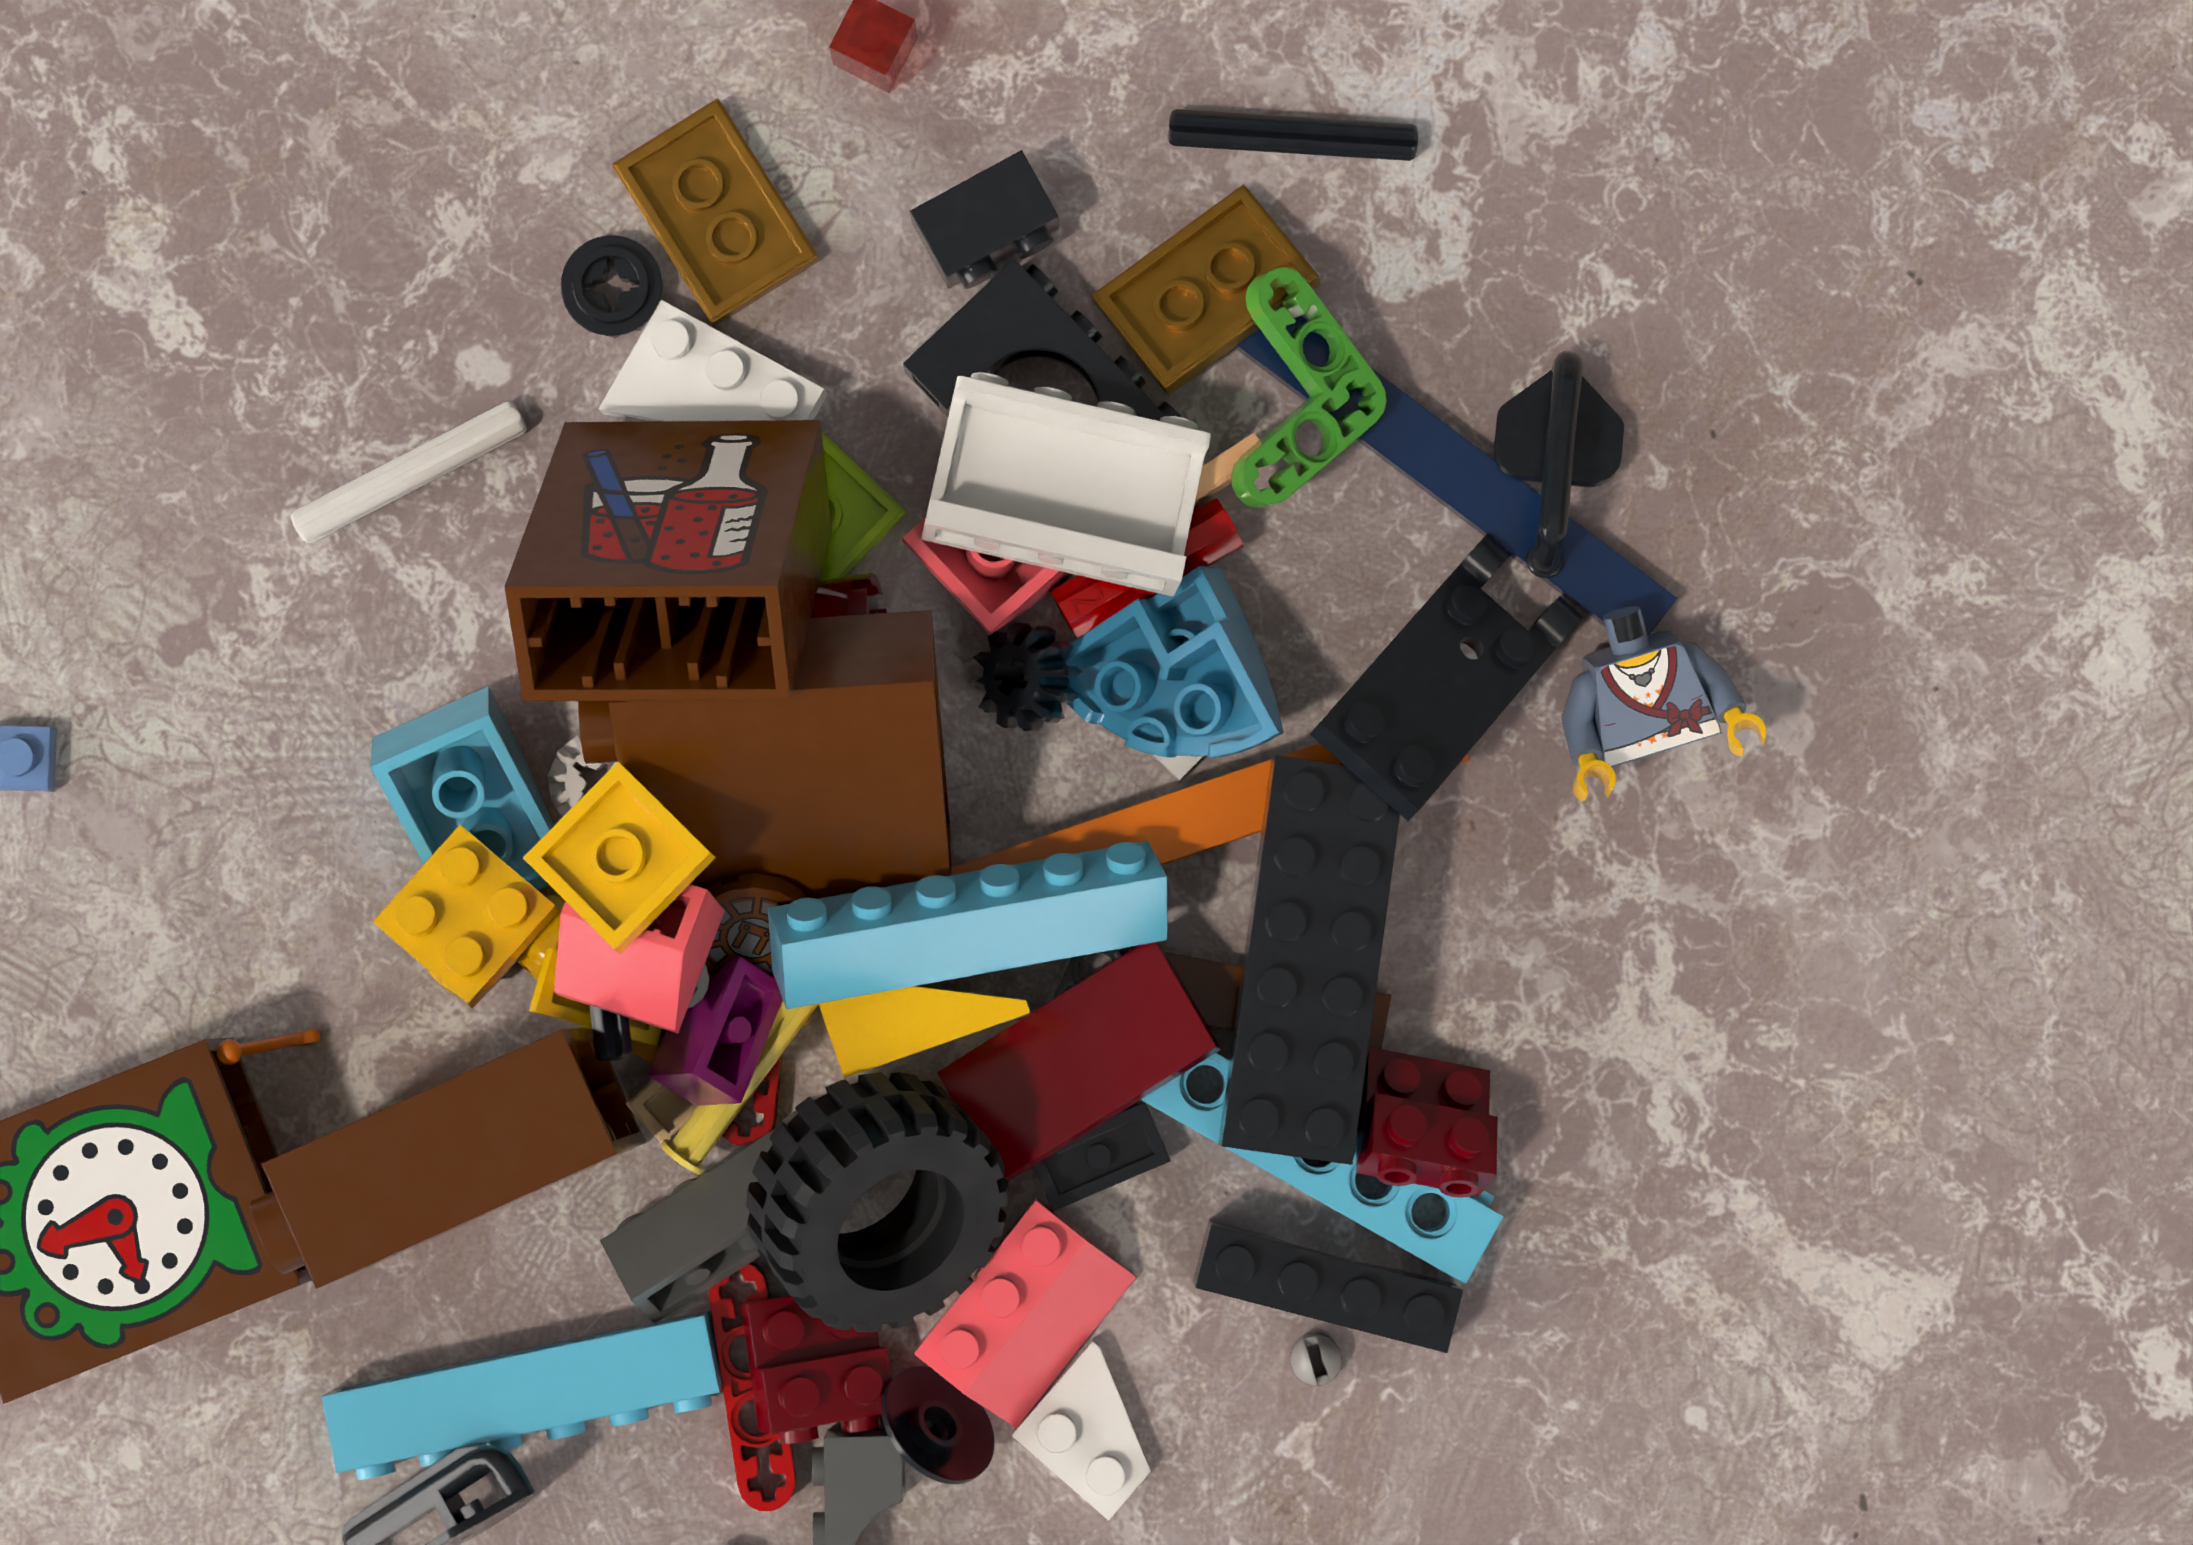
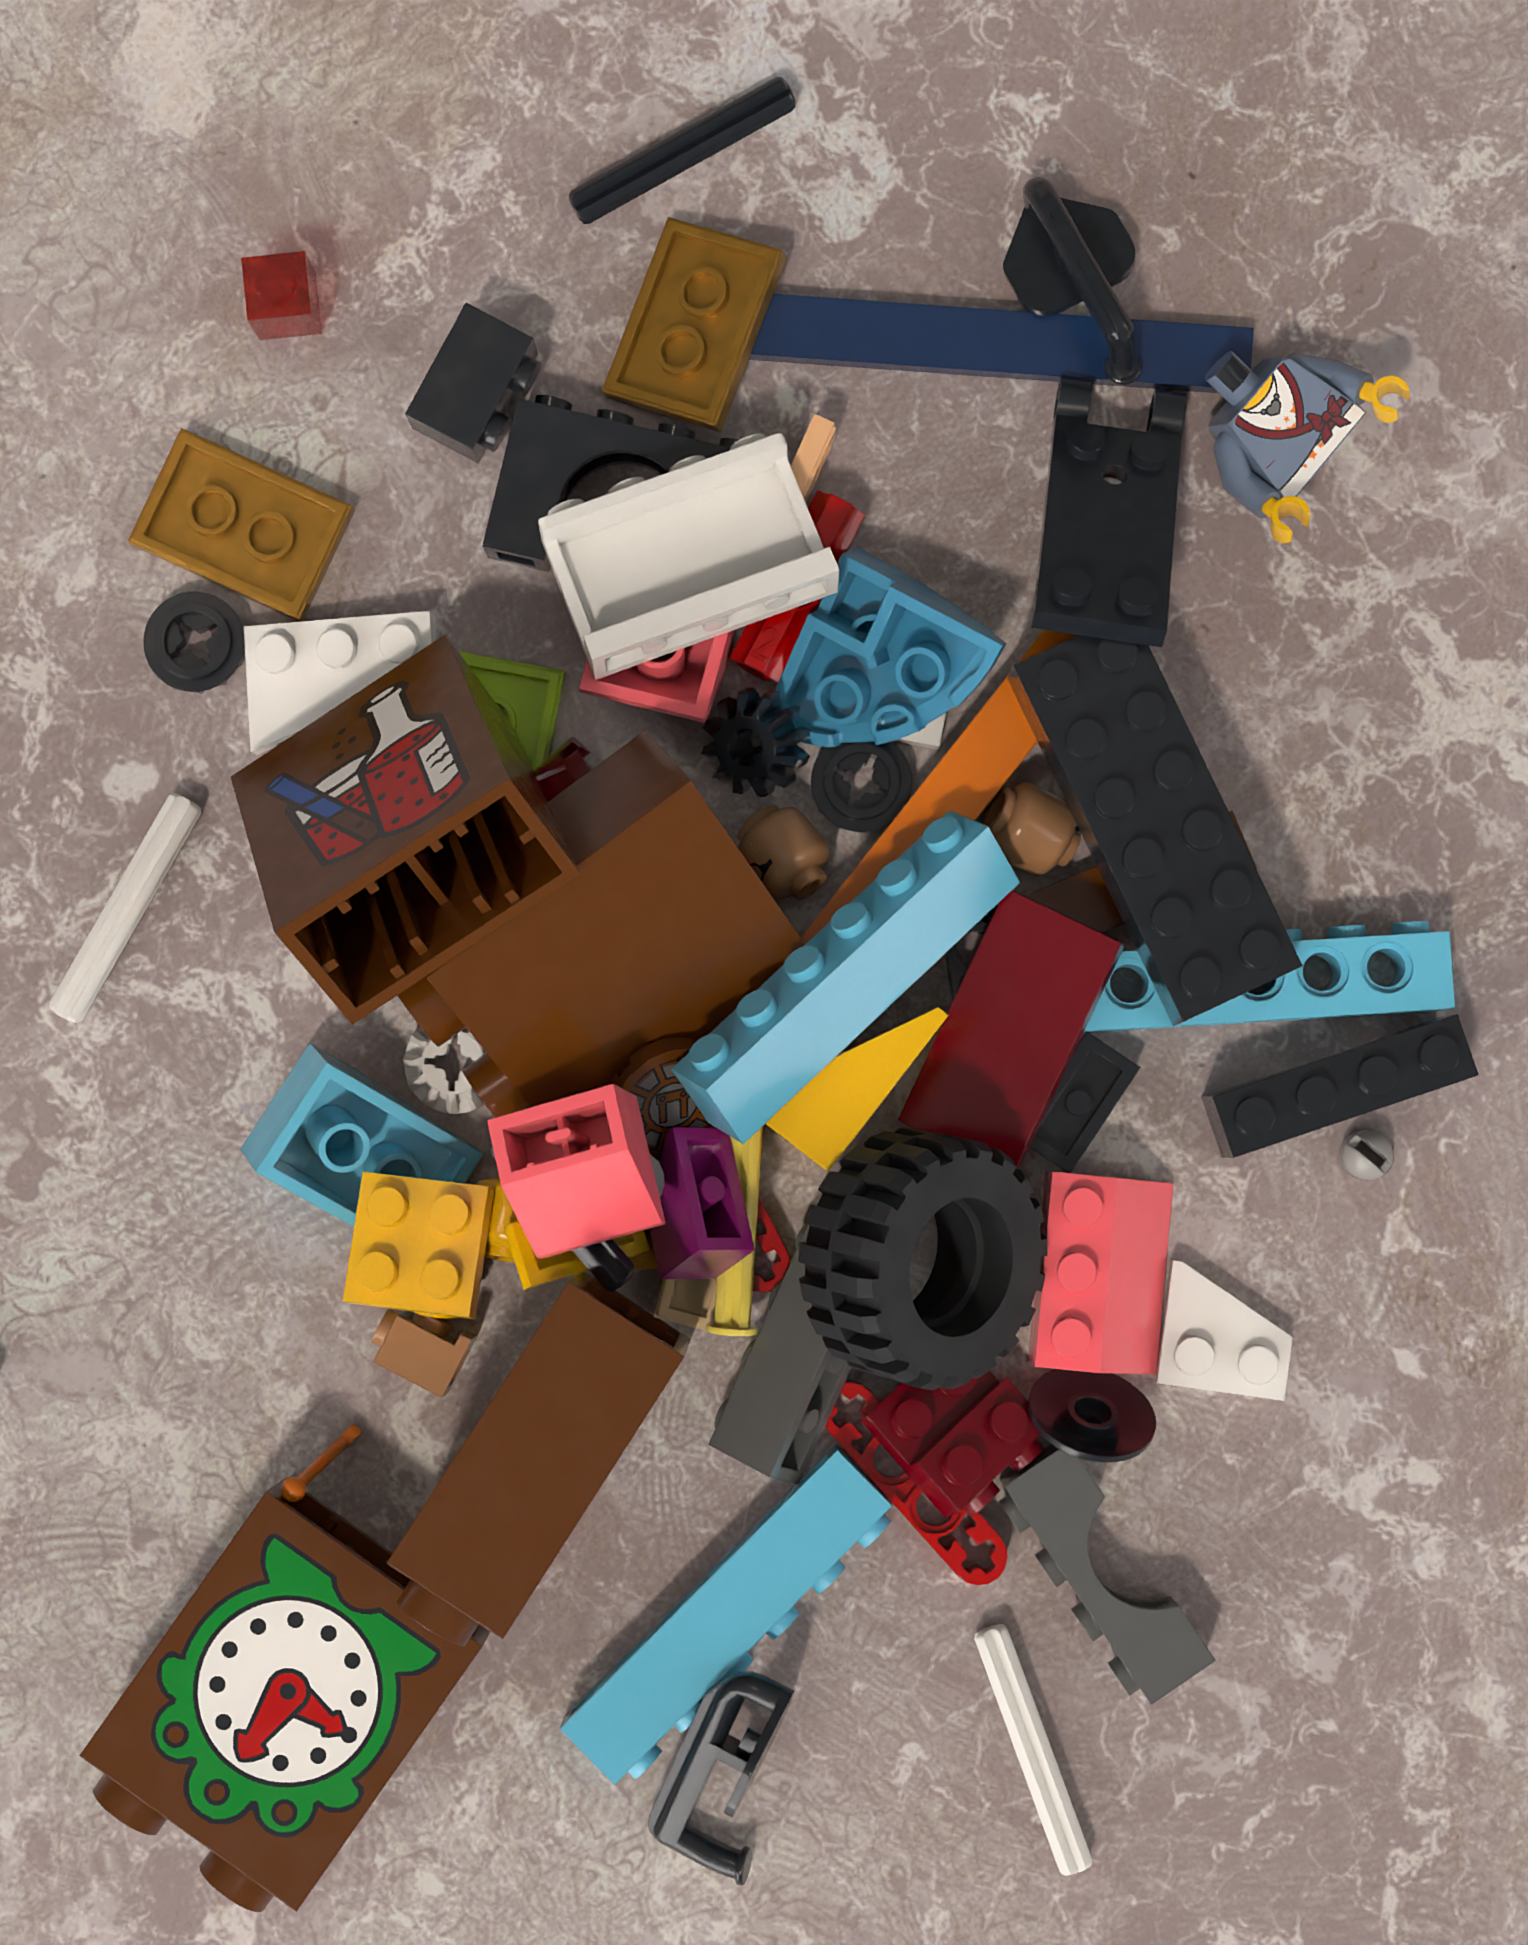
camera: 25 degrees left, 0 degrees up
(413, 1005) = (421, 1350): none -> medium nougat brick
(619, 857) = (521, 1104): yellow plate -> none
(988, 785) = (785, 852): none -> medium nougat head
(1086, 797) = (872, 811): none -> black gear
(1210, 900) = (1033, 828): none -> medium nougat head
(1325, 385) = (848, 337): bright green beam -> none
(1426, 1124) = (1339, 896): dark red plate -> none

